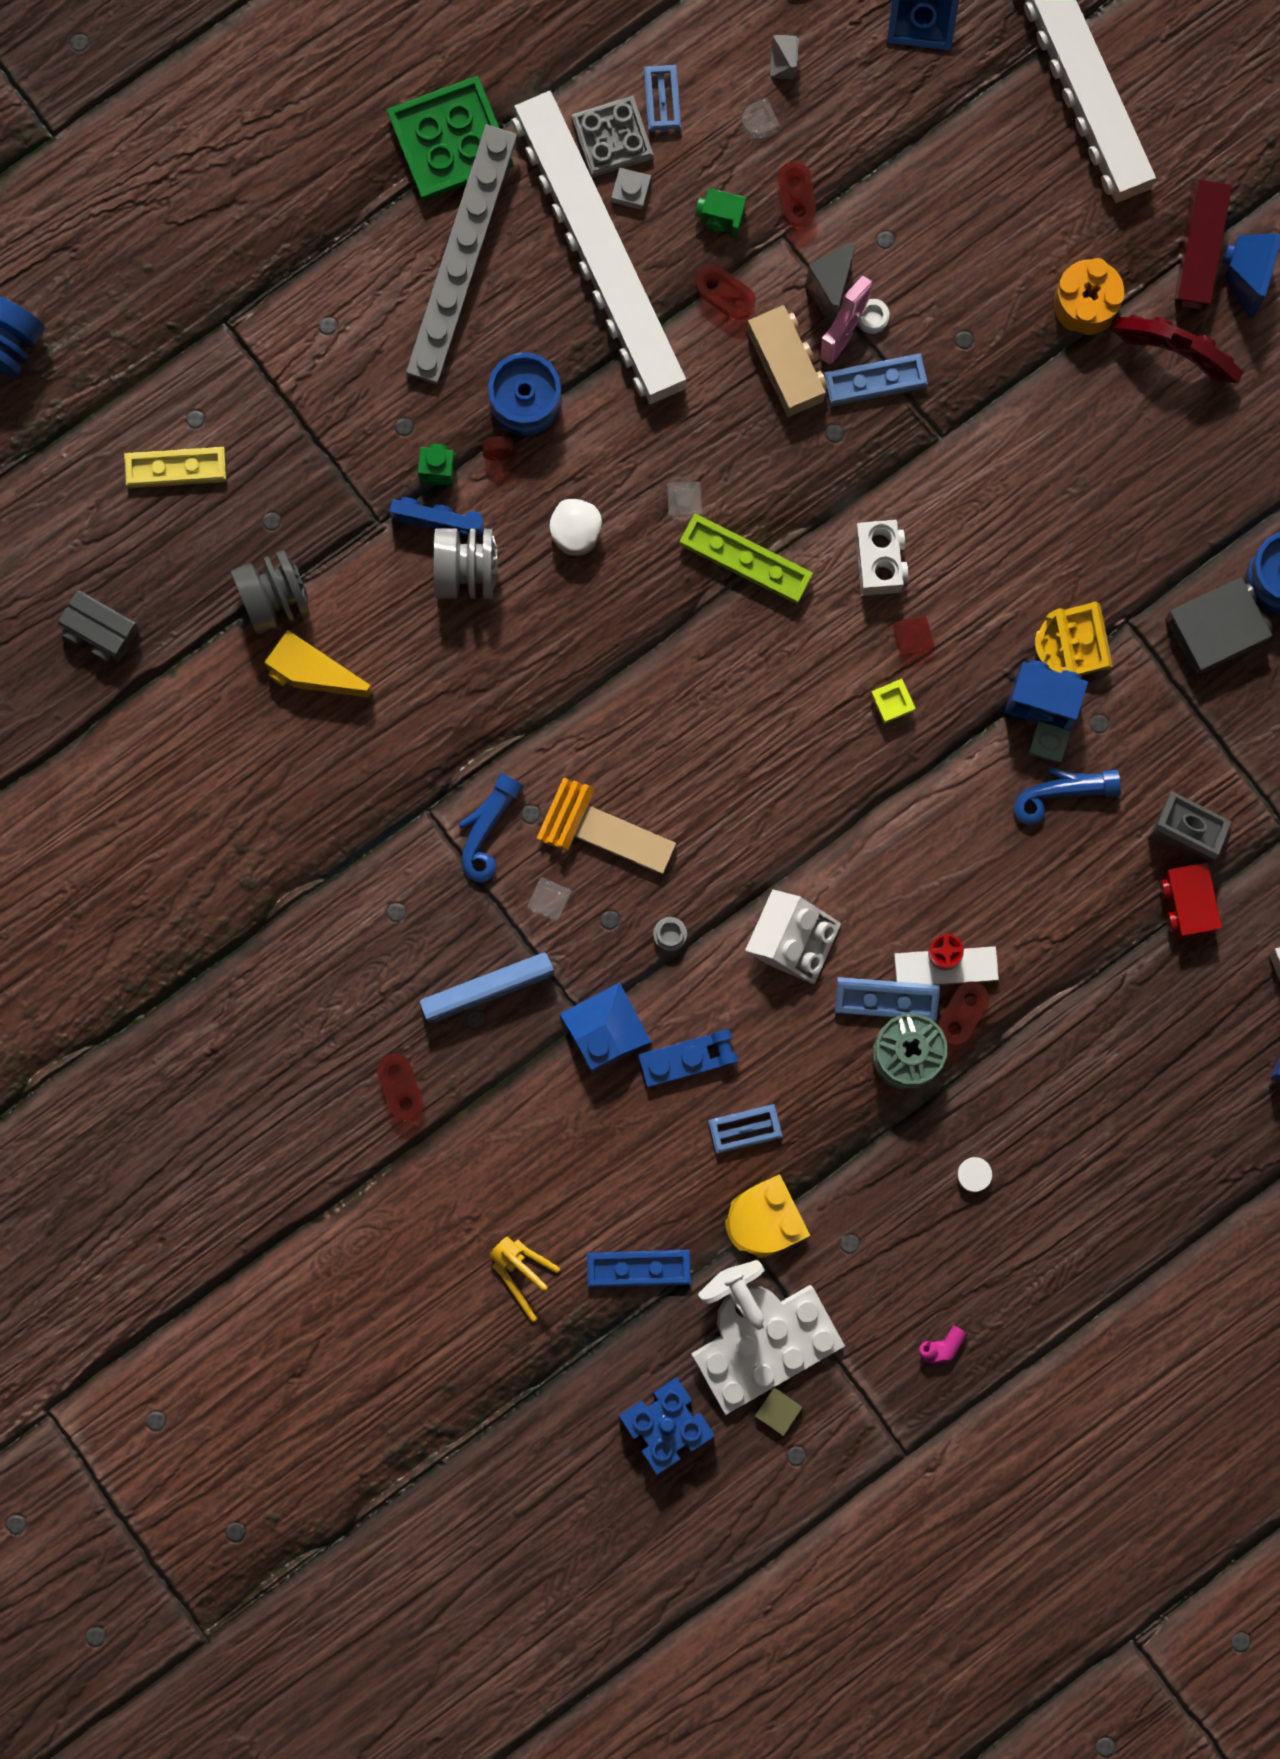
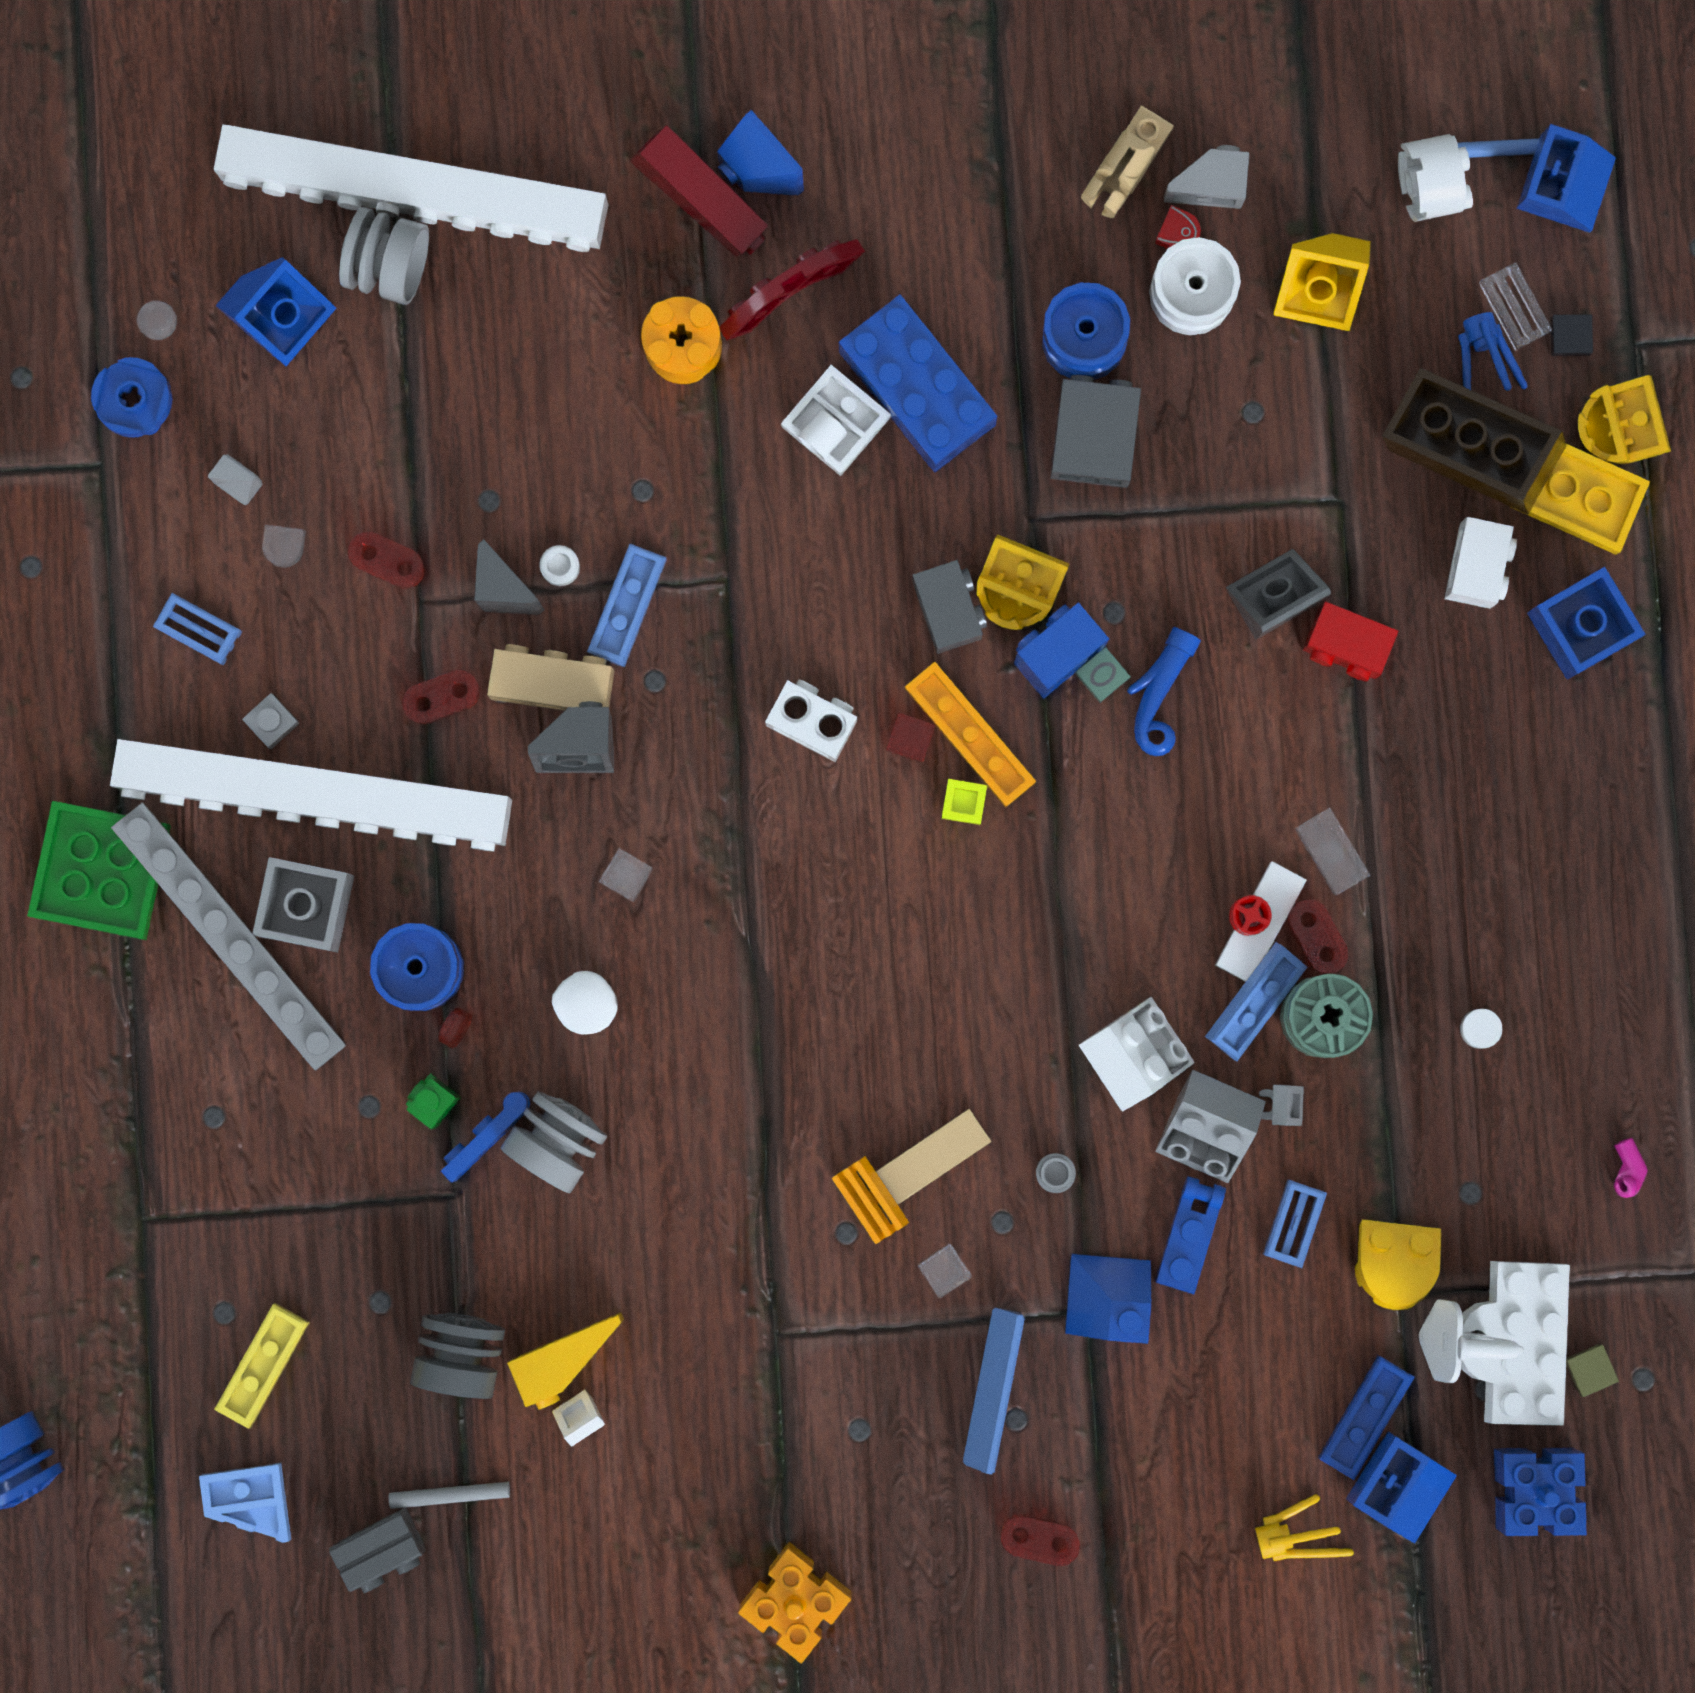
camera: 50 degrees left, 5 degrees up
(76, 516) = (249, 1499): none -> light blue wing
(167, 653) = (449, 1495): none -> light grey bar
(246, 939) = (795, 1602): none -> light orange brick
(279, 706) = (578, 1417): none -> white plate
(485, 819) = (823, 1283): blue plant -> none
(517, 289) = (303, 904): none -> light grey brick
(604, 1324) = (1401, 1487): none -> blue slope
(612, 136) = (204, 704): light grey tile -> none
(721, 211) = (355, 647): green brick -> none
(746, 558) = (726, 853): lime plate -> none
(754, 401) = (576, 742): none -> dark grey slope
(775, 1021) = (1211, 1126): none -> light grey slope
(826, 1066) = (1287, 1105): none -> light grey tile
(840, 332) = (548, 593): bright pink tile -> none
(943, 675) = (970, 734): none -> light orange plate
(1009, 56) = (376, 254): none -> light grey wheel
(1024, 600) = (948, 606): none -> dark grey brick
(1031, 985) = (1332, 851): none -> clear plate
(1104, 440) = (835, 420): none -> white plate
(1169, 479) = (917, 383): none -> blue brick

